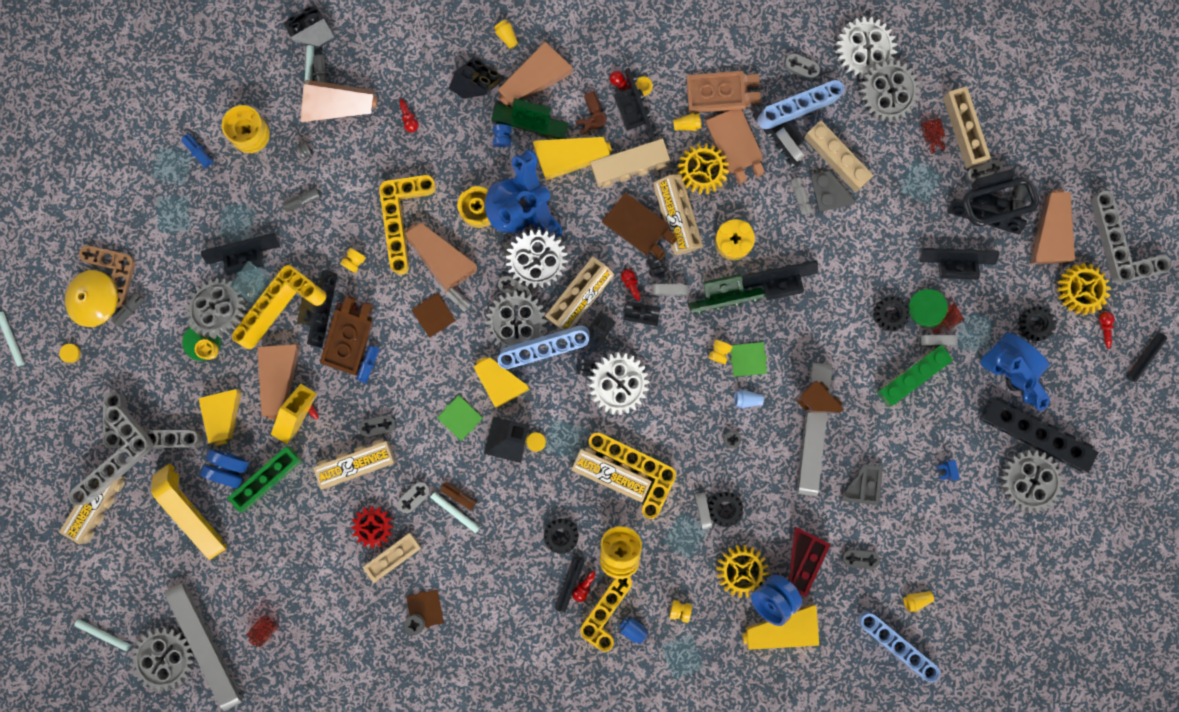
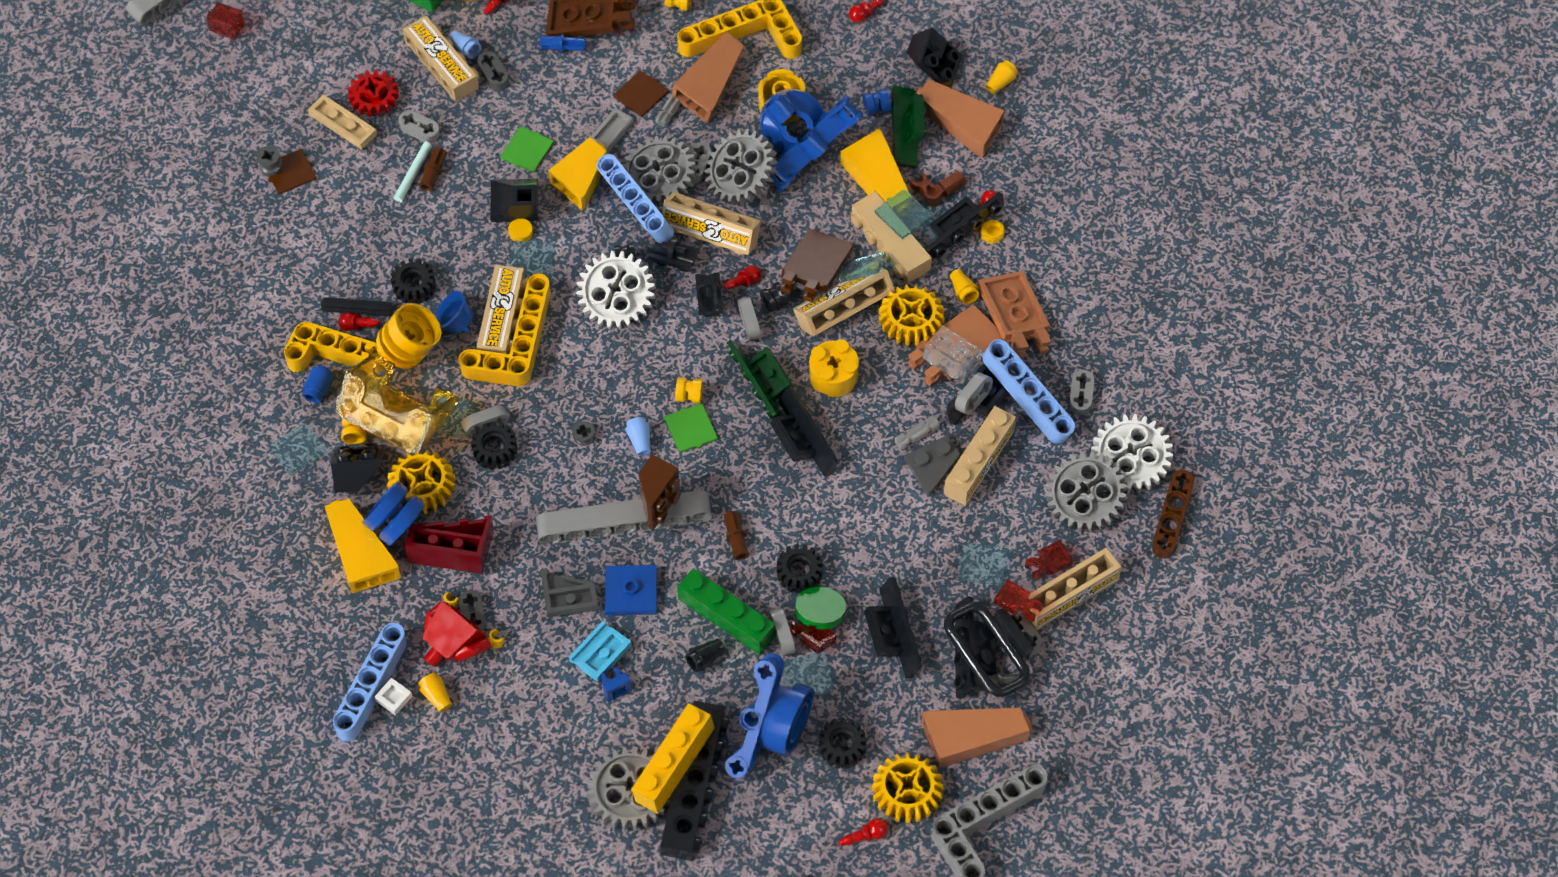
camera: 70 degrees right, 25 degrees down
(346, 442) = (465, 44): none -> light blue cone
(463, 348) = (612, 128): none -> light grey tile
(602, 513) = (454, 313): none -> blue piece
(618, 147) = (903, 214): none -> clear light blue piece
(654, 192) = (862, 267): none -> clear light blue piece
(680, 578) = (387, 412): none -> clear yellow windscreen
(715, 616) = (355, 466): none -> black slope
(754, 149) = (952, 354): none -> clear brick
(850, 351) = (736, 535): none -> reddish brown axle
(872, 439) = (631, 590): none -> blue plate
(879, 577) = (454, 634): none -> torso
(917, 632) = (393, 696): none -> white tile
(918, 38) = (1174, 514): none -> reddish brown beam
(918, 474) = (600, 651): none -> medium azure plate
(941, 400) = (703, 655): none -> black cone
(976, 169) = (1015, 599): none -> clear red plate
(1033, 446) = (673, 758): none -> yellow brick

